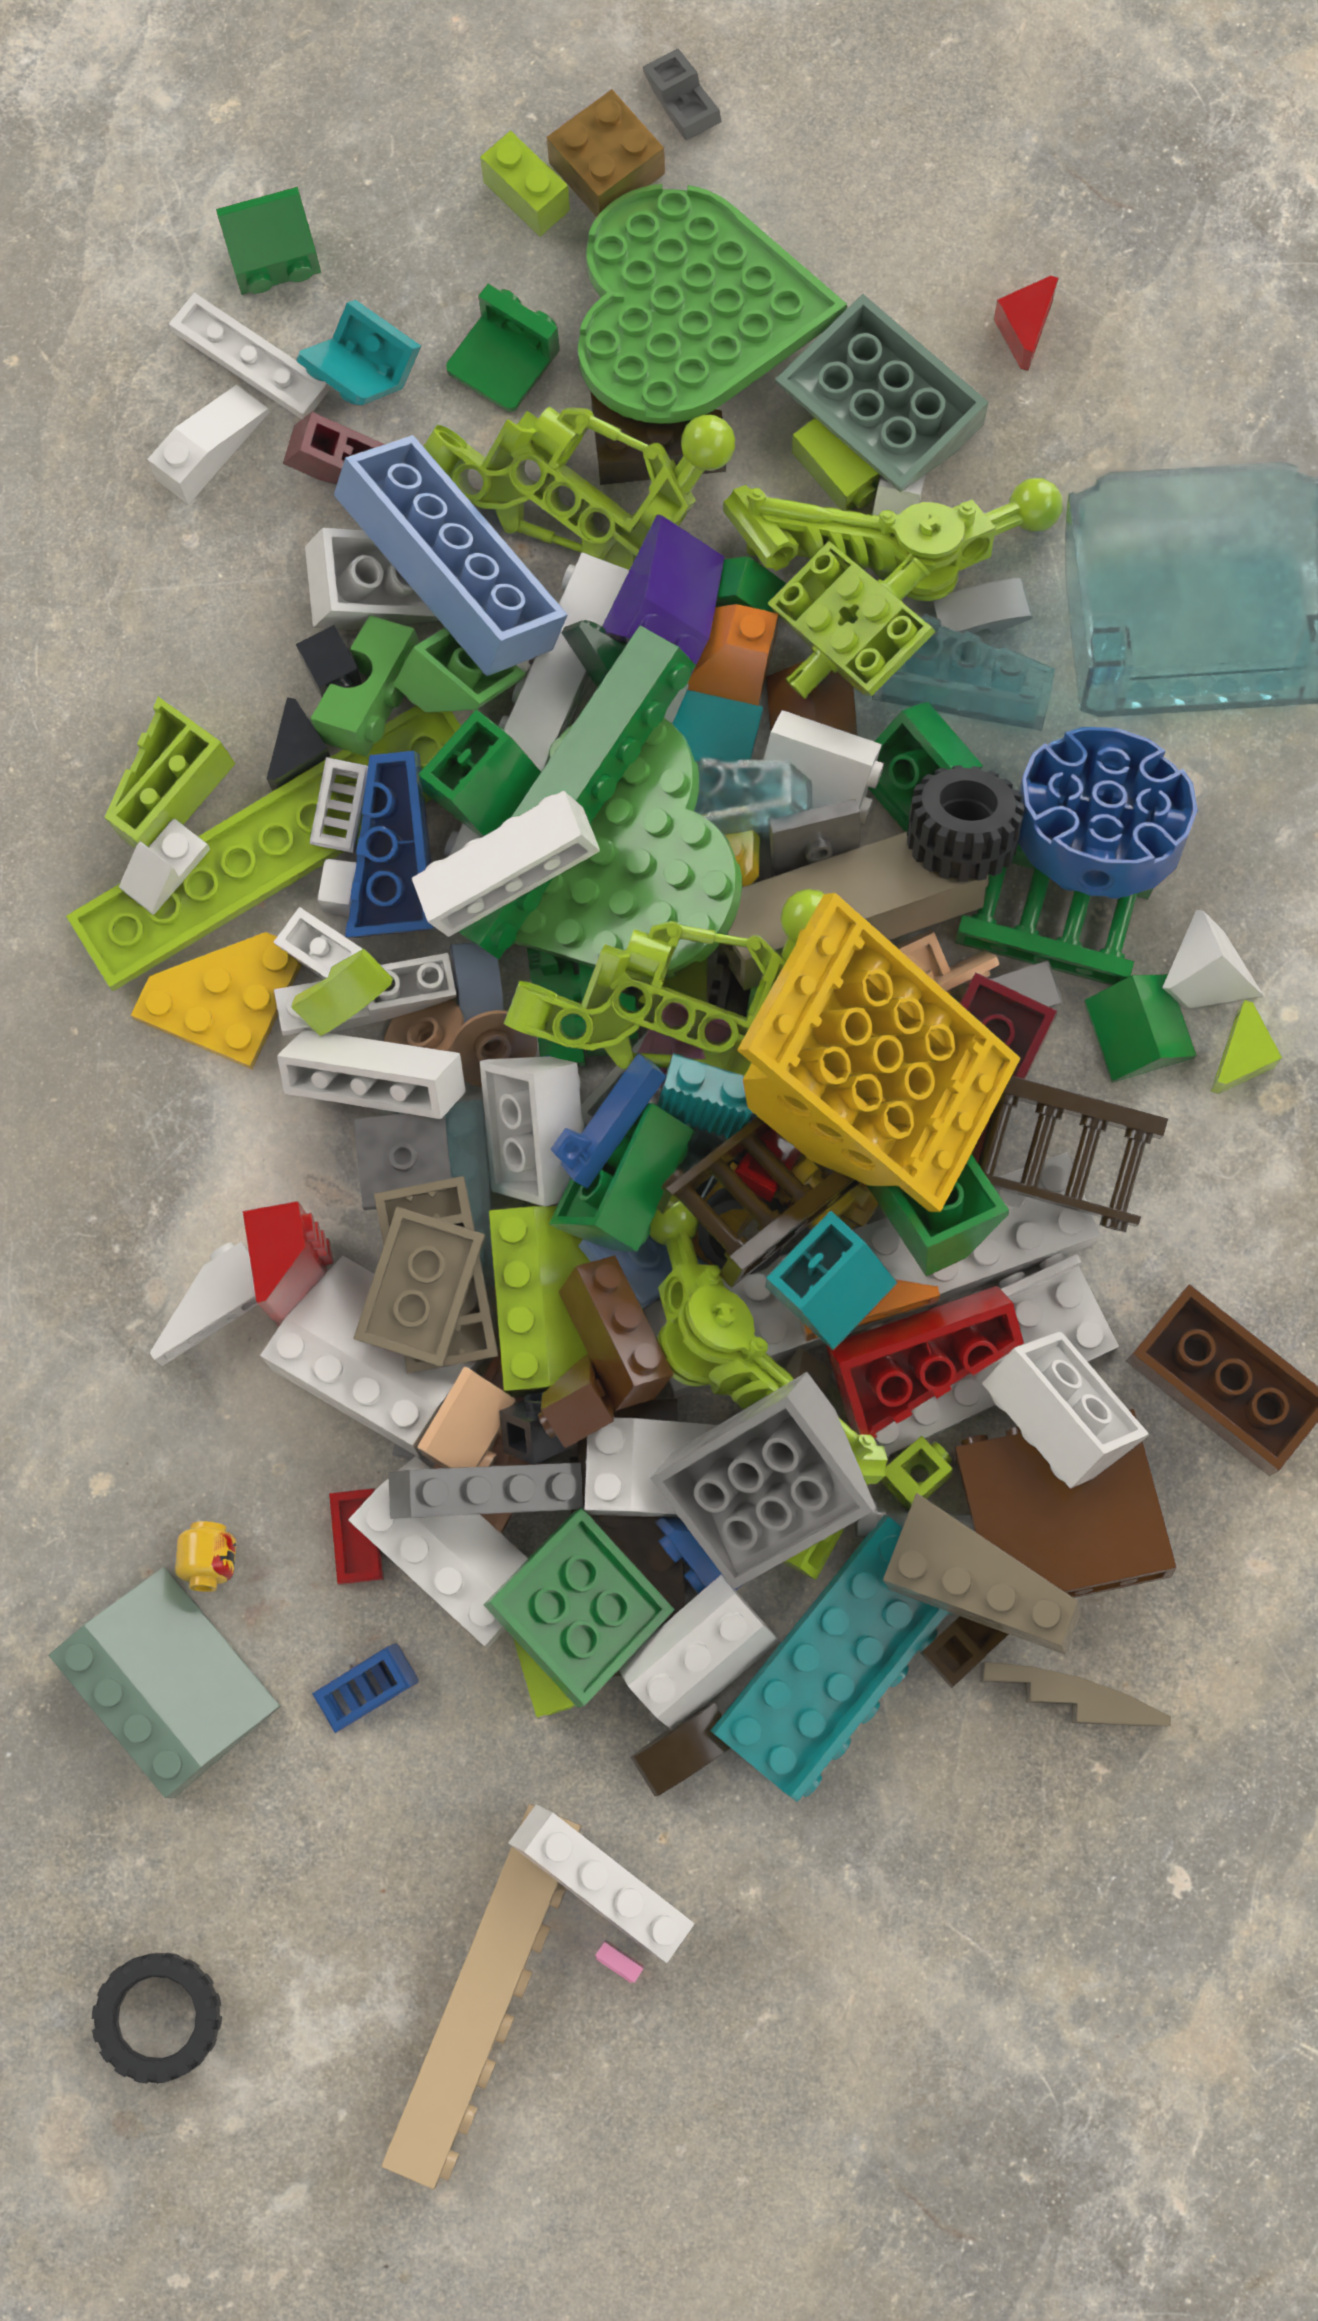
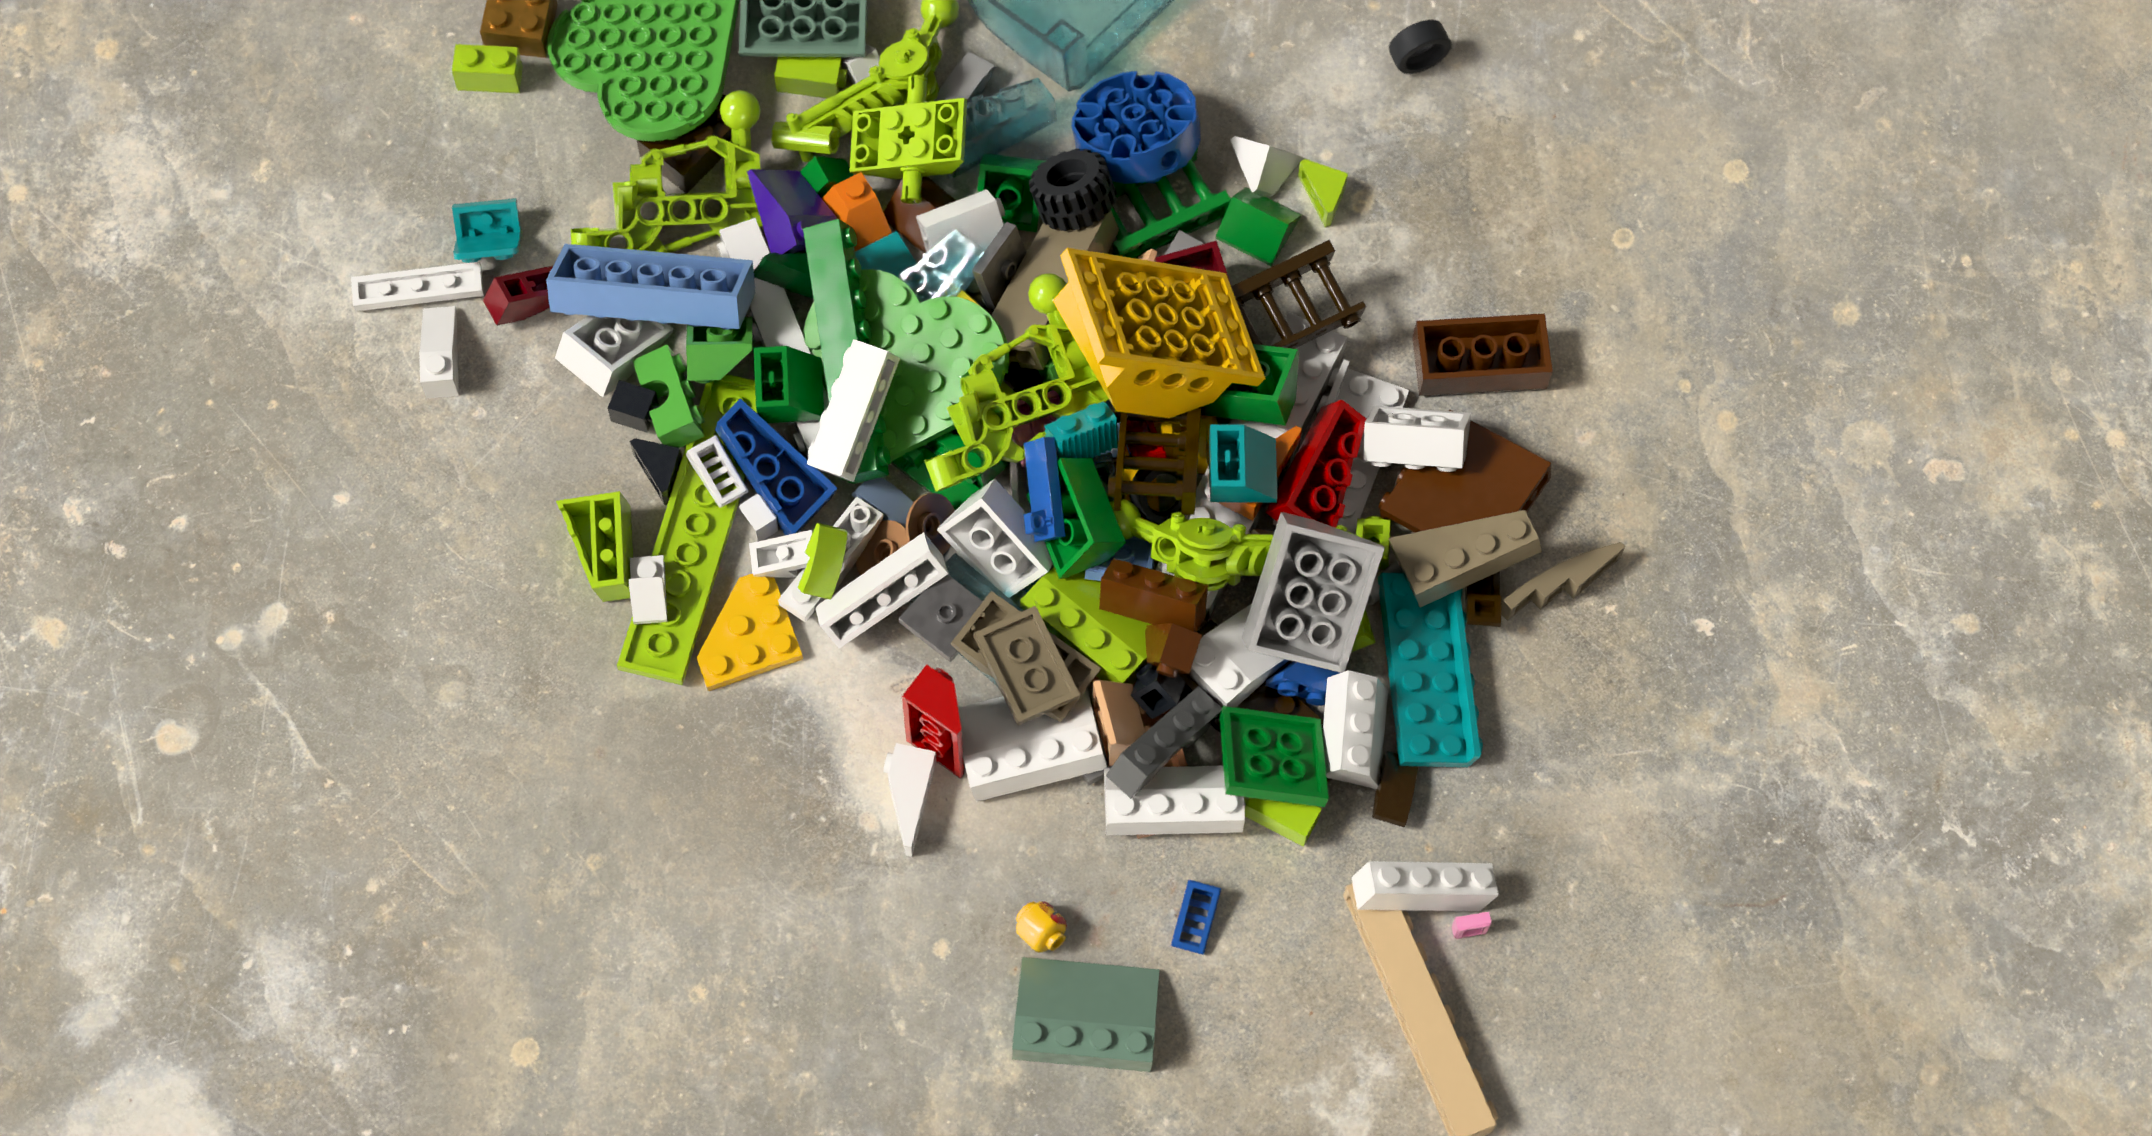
camera: 50 degrees left, 10 degrees down
(269, 241) = (371, 213): green slope -> none
(355, 1555) = (1116, 851): red tile -> none
(505, 349) = (563, 163): green bracket -> none

